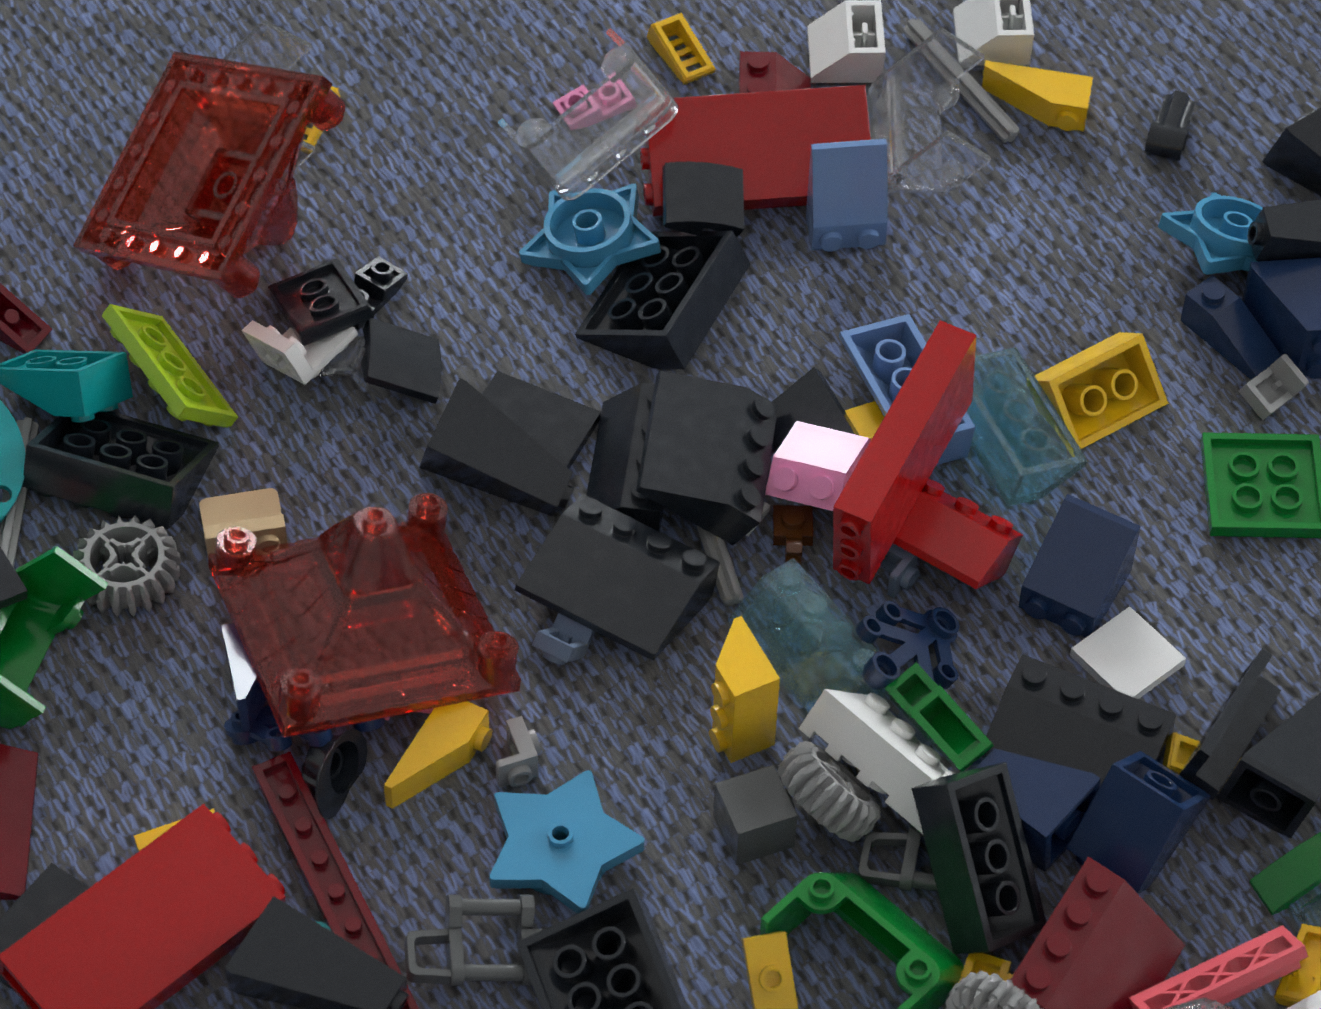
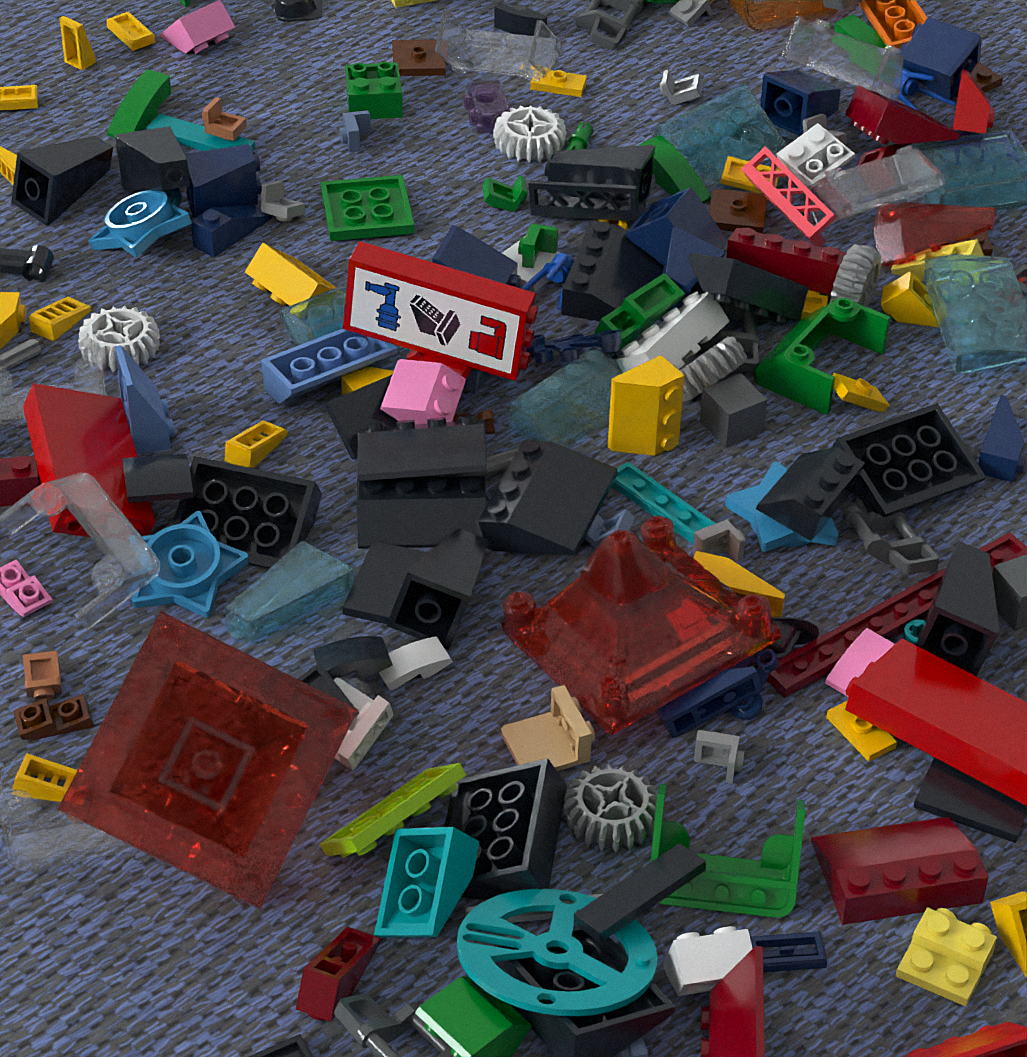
camera: 100 degrees left, 10 degrees down
(181, 680) = (719, 750): none -> light grey bracket
(276, 854) = (865, 649): none -> bright pink slope
(396, 424) = (416, 658): none -> white slope
(397, 122) = (43, 721): none -> reddish brown slope
(450, 112) = (42, 675): none -> nougat bracket
(529, 322) = (288, 592): none -> clear light blue slope
(553, 846) = (812, 490): none -> black slope
(614, 717) = (660, 501): none -> teal tile
(781, 324) = (247, 452): none -> yellow slope
(1003, 213) = (122, 327): none -> white gear
(1052, 139) = (49, 325): none -> yellow slope
(1087, 666) = (557, 272): none -> blue plant
(1140, 646) = (537, 239): none -> green bracket
(1223, 924) = (738, 210): none -> reddish brown plate
(1284, 641) = (503, 195): none -> green bracket

